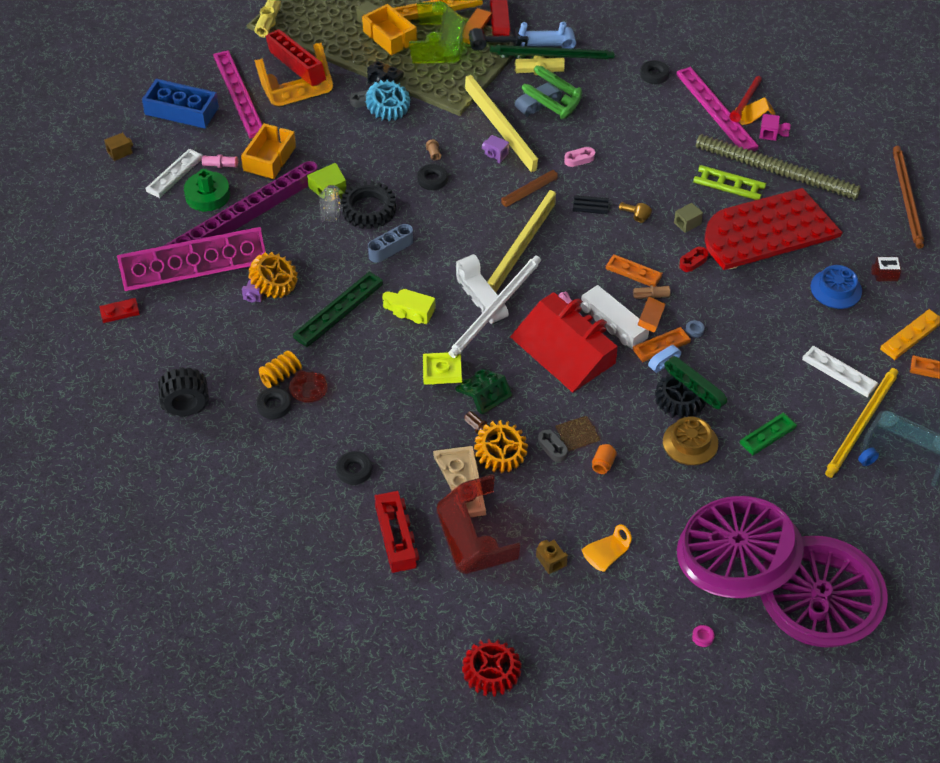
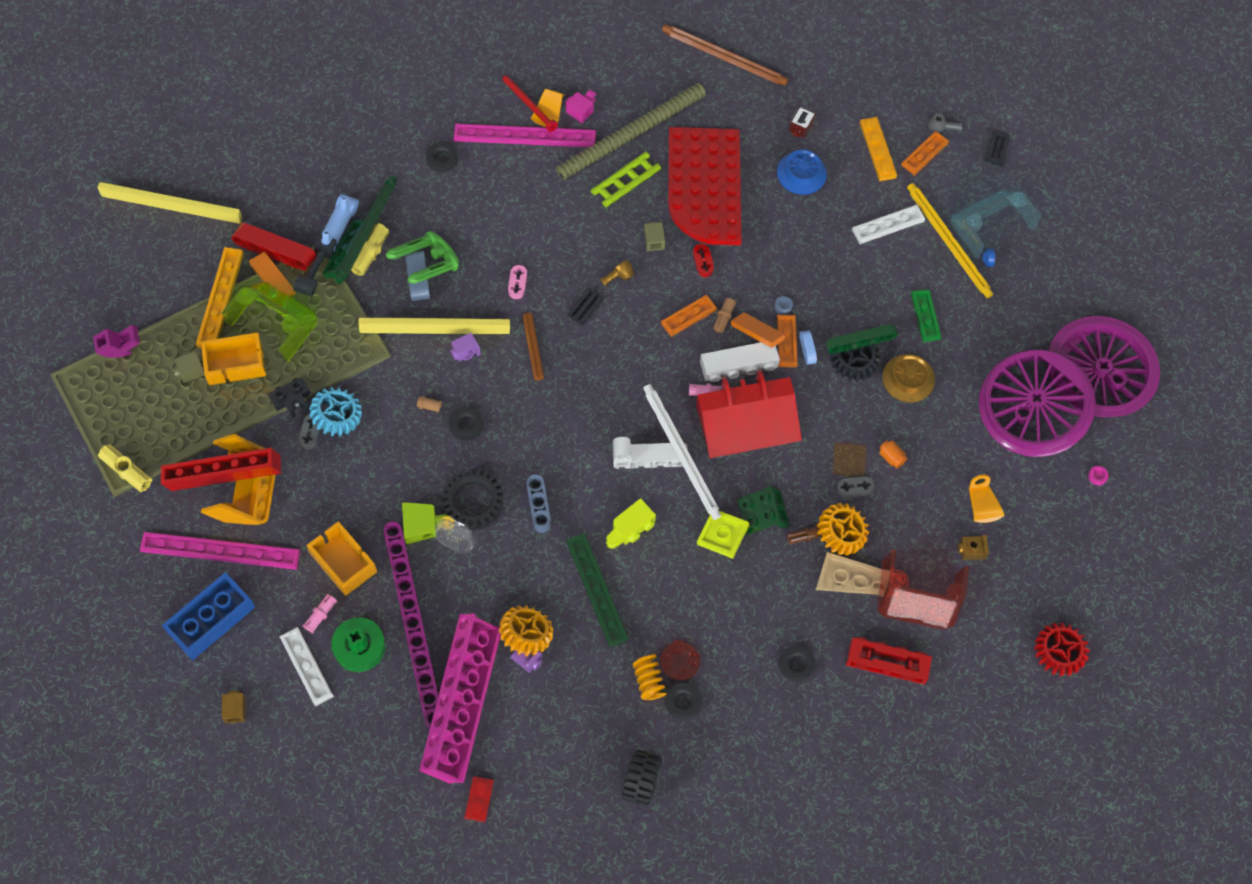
camera: 65 degrees left, 15 degrees up
(522, 241) = (603, 387): light yellow tile -> none

